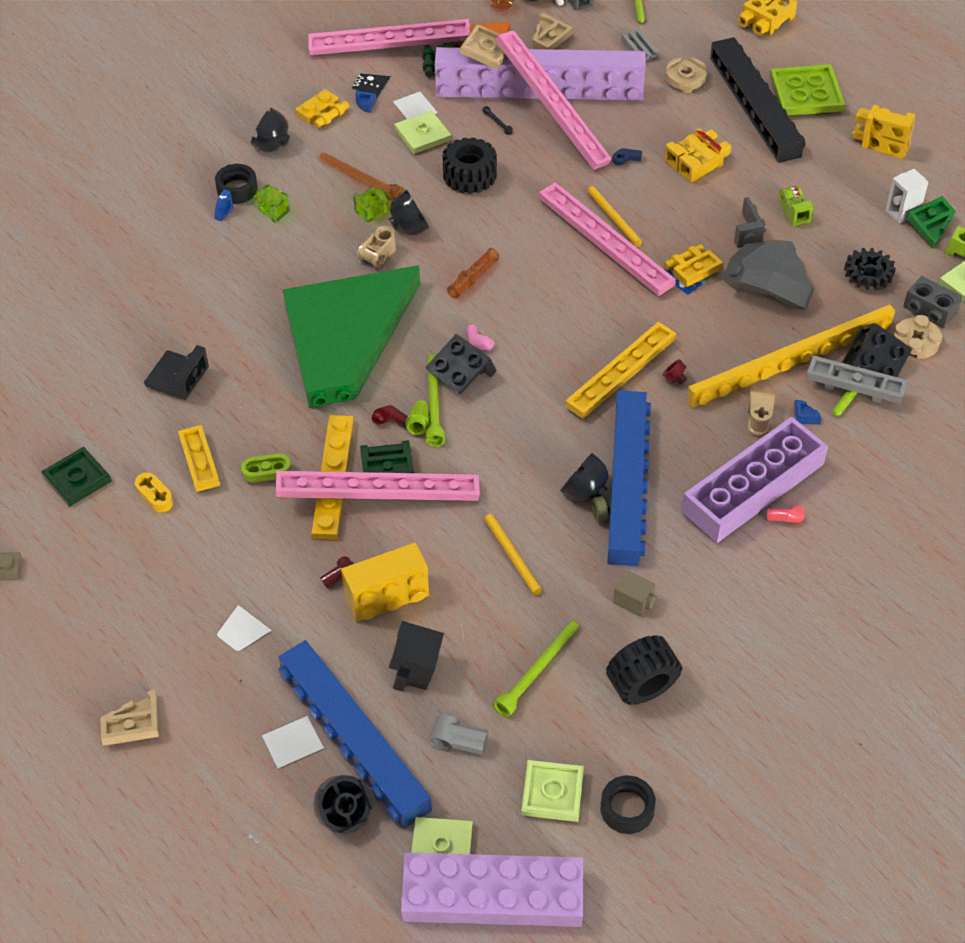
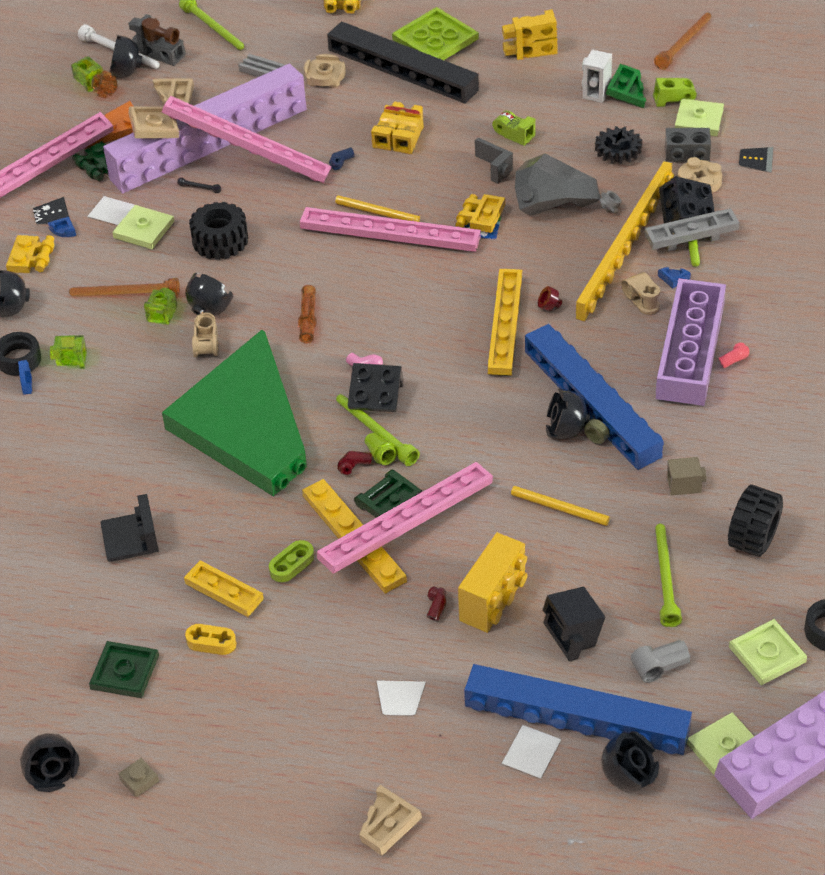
camera: 35 degrees left, 5 degrees down
(813, 315) = (610, 201): none -> light grey plate

